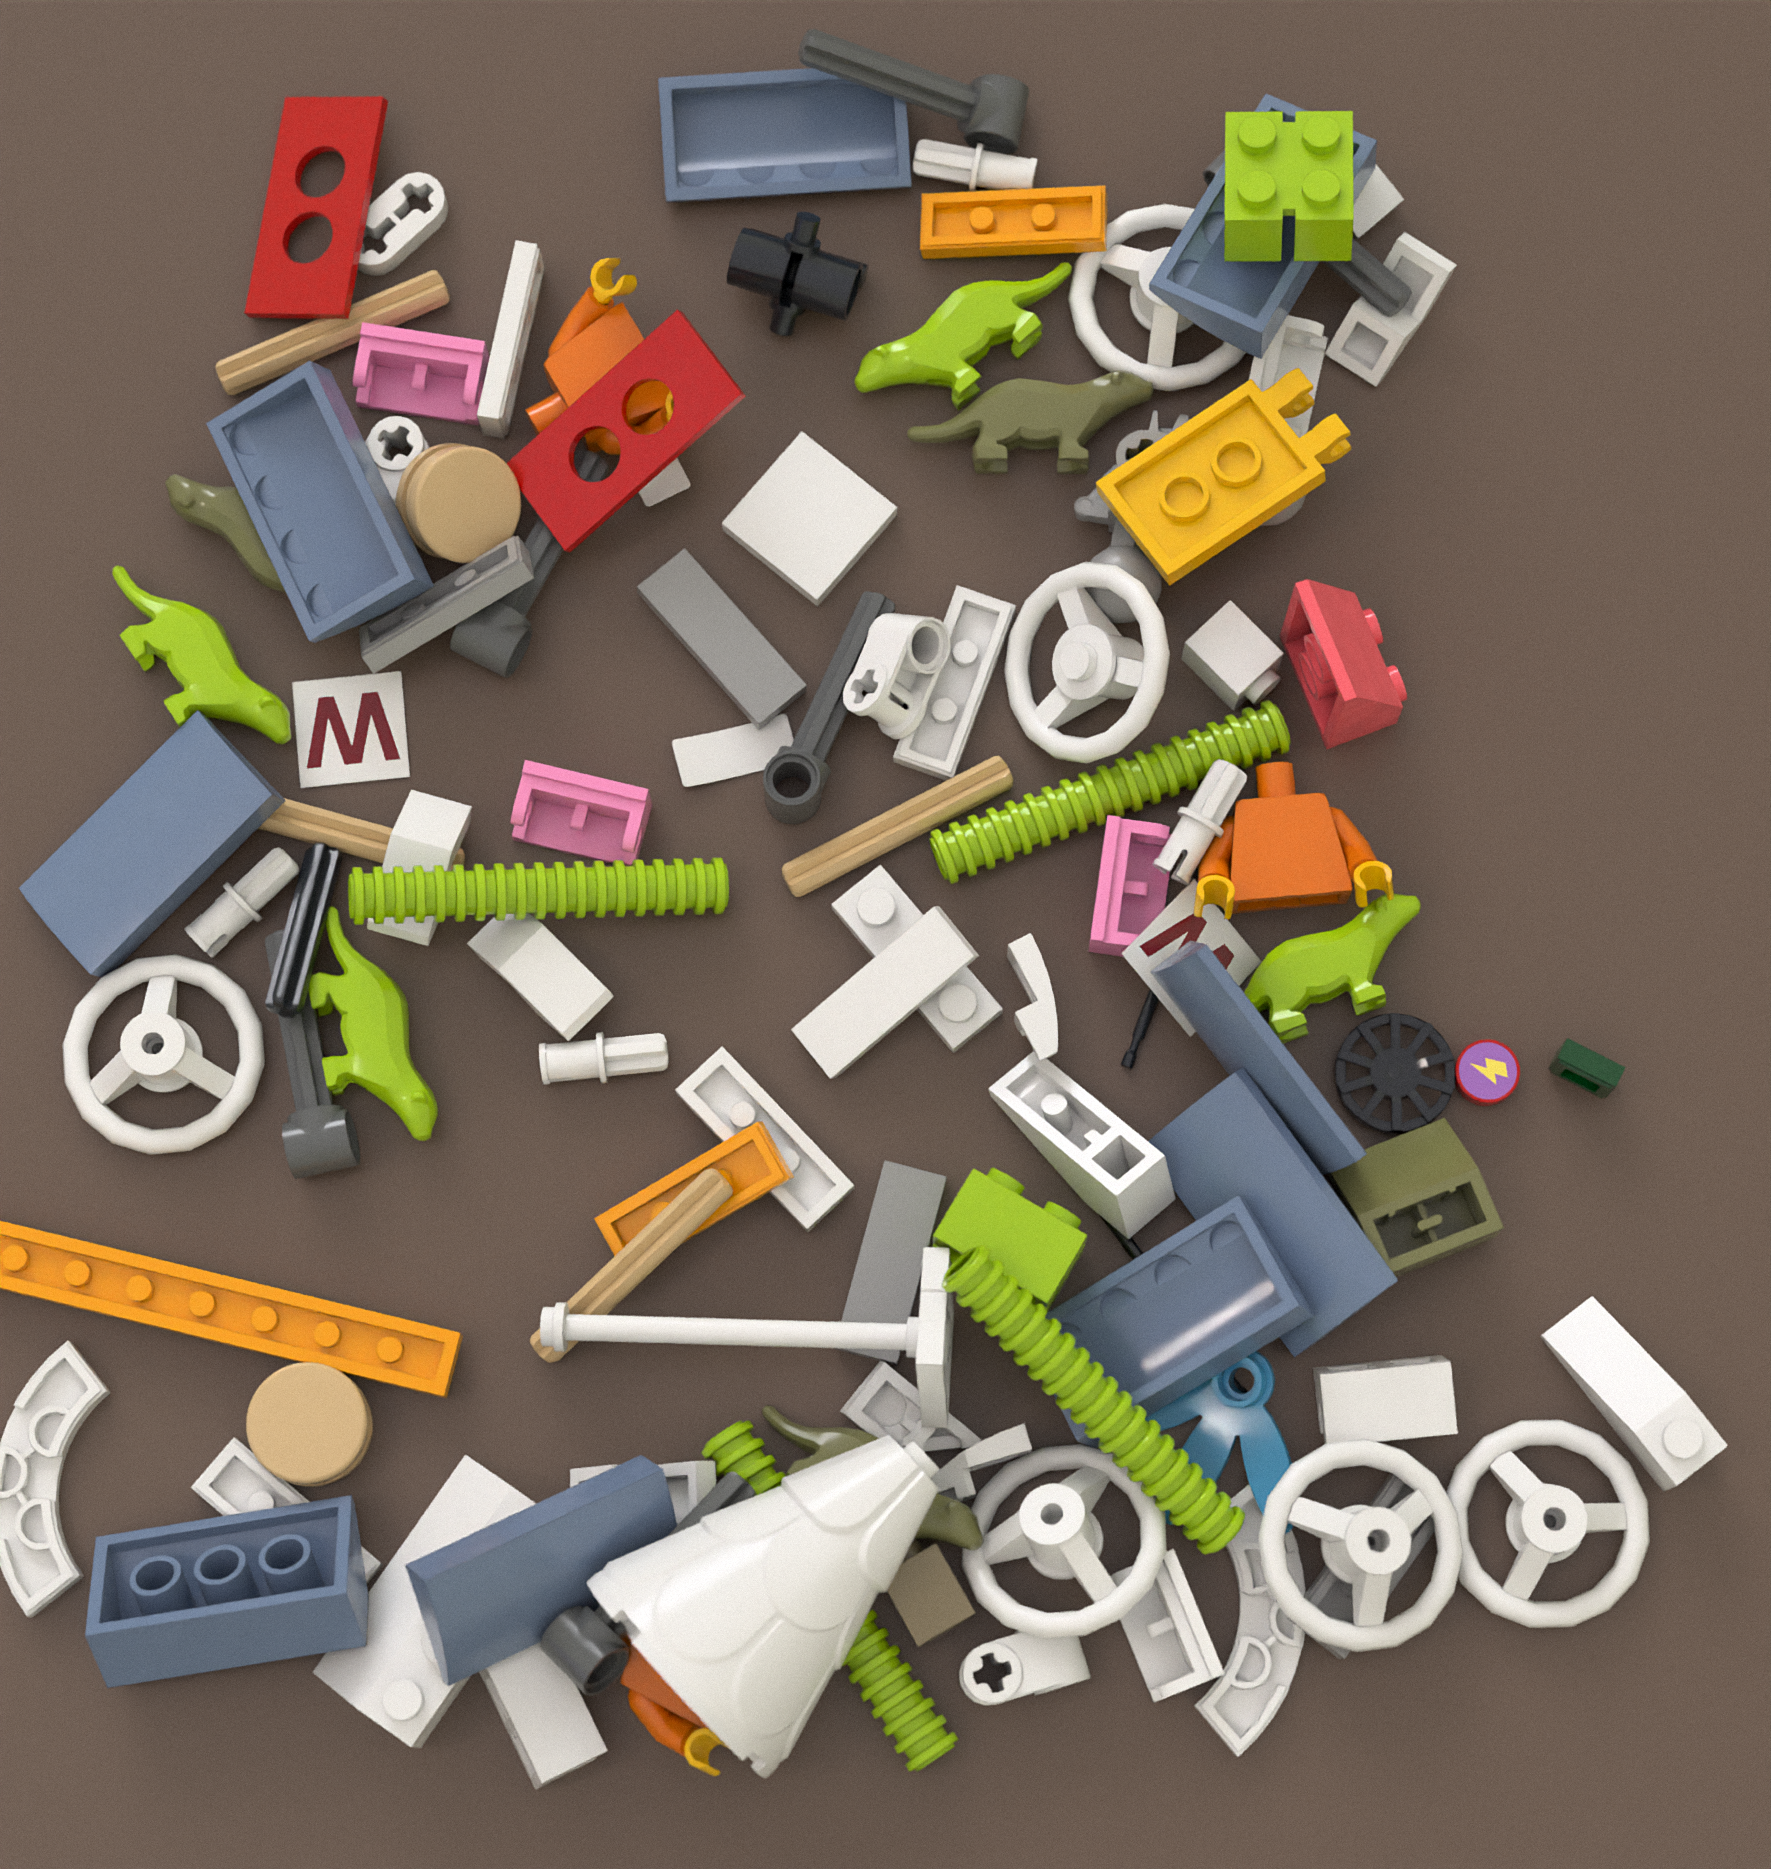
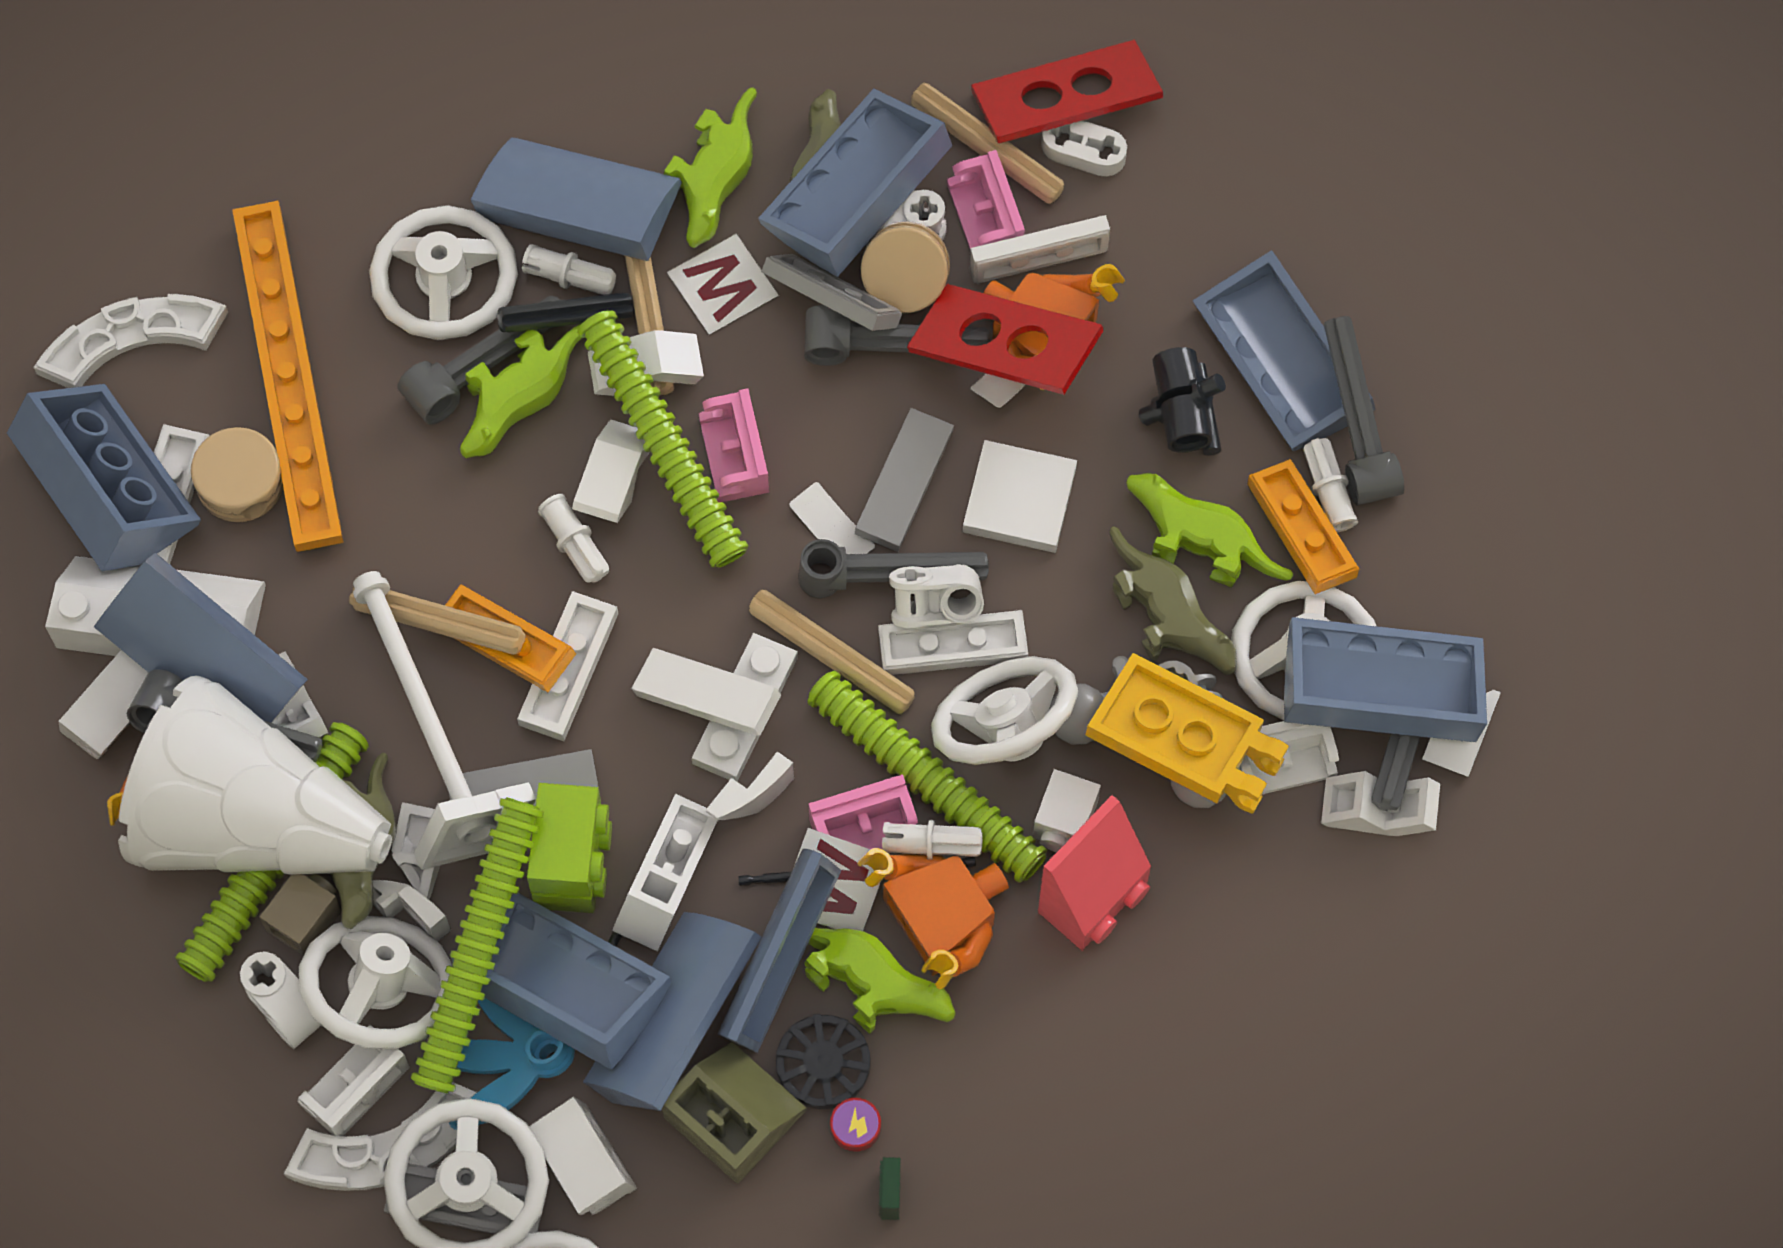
camera: 60 degrees right, 10 degrees down
(1288, 171) = (1418, 666): lime piece -> none

